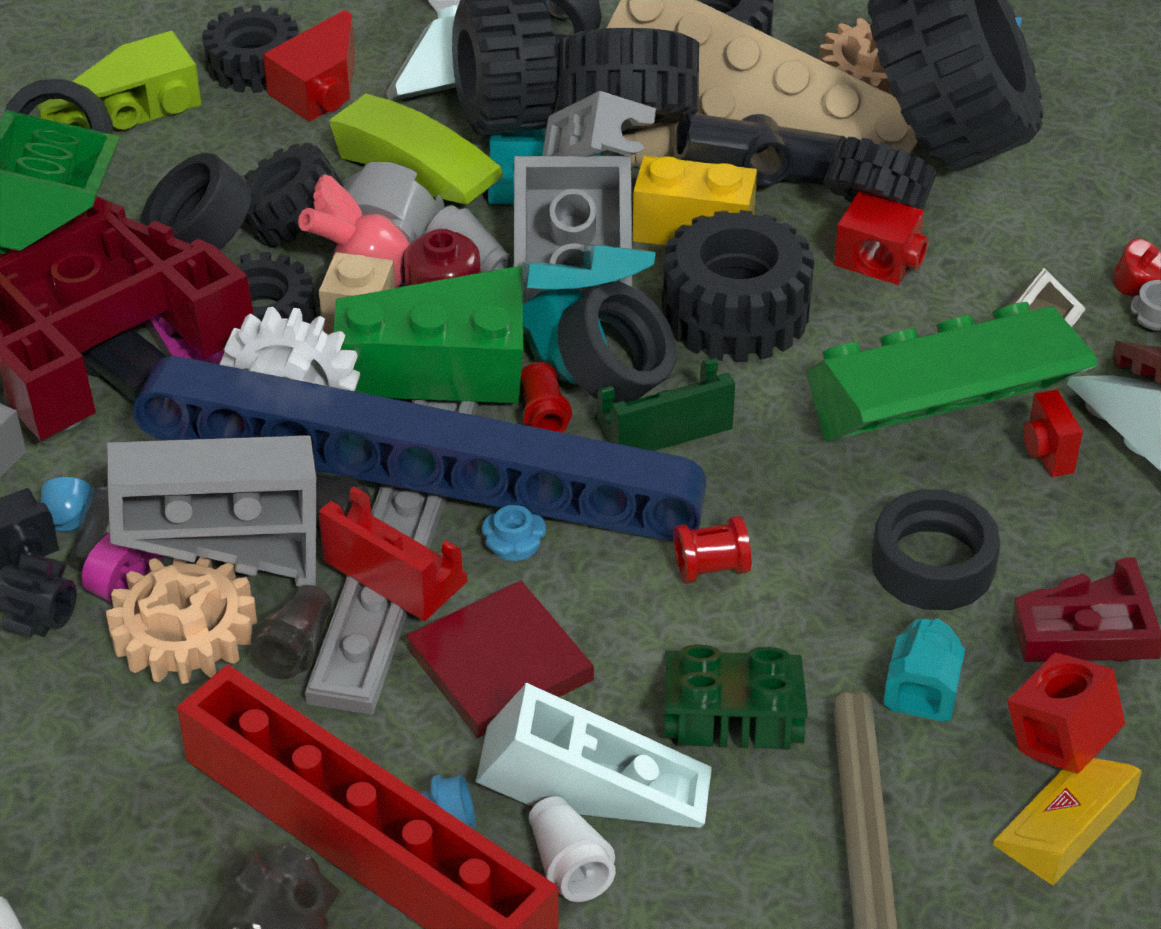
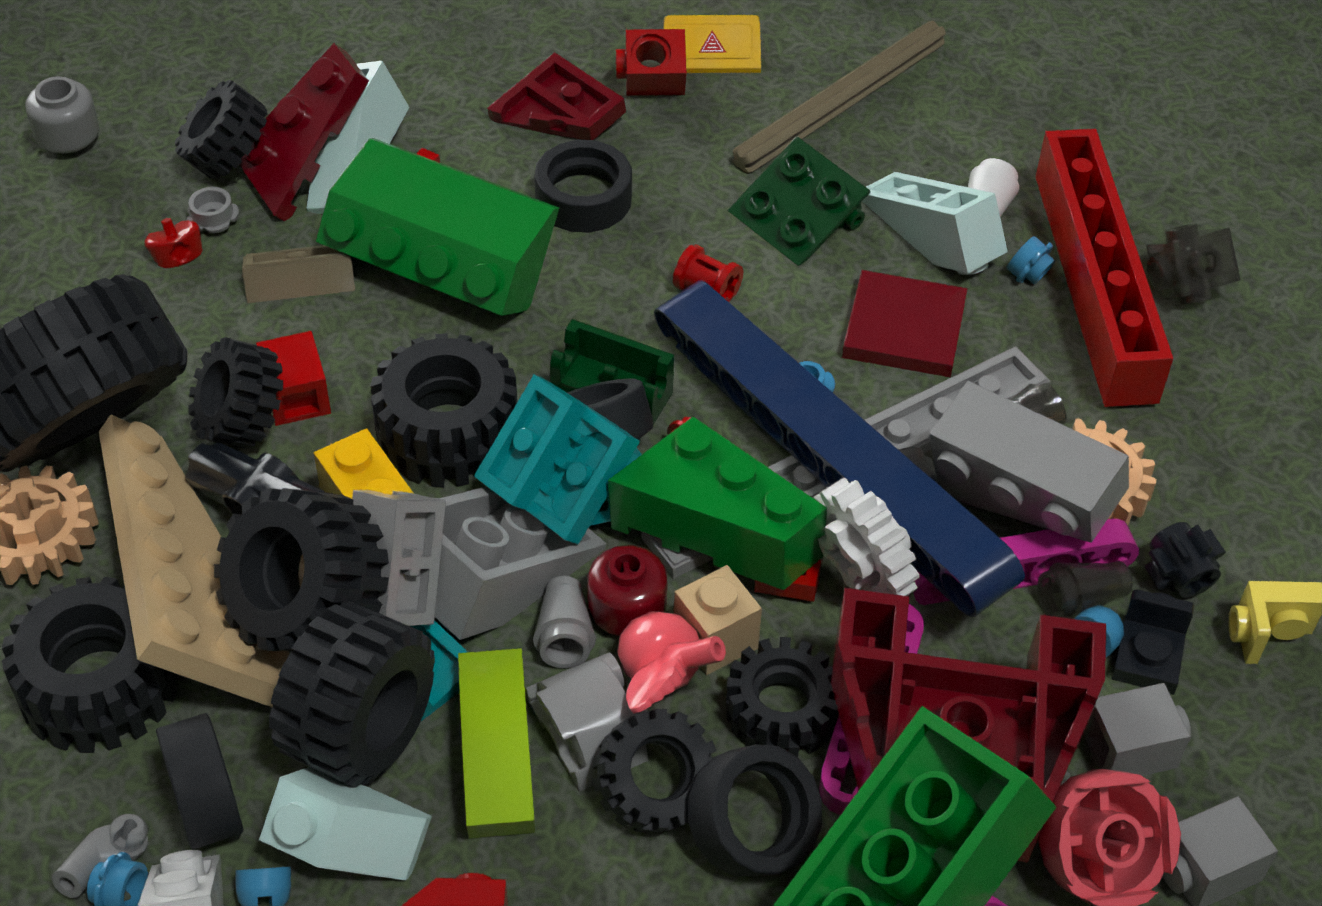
camera: 135 degrees left, 5 degrees up
(388, 558) = (917, 385): red hinge -> none
(925, 671) = (684, 141): teal rock -> none

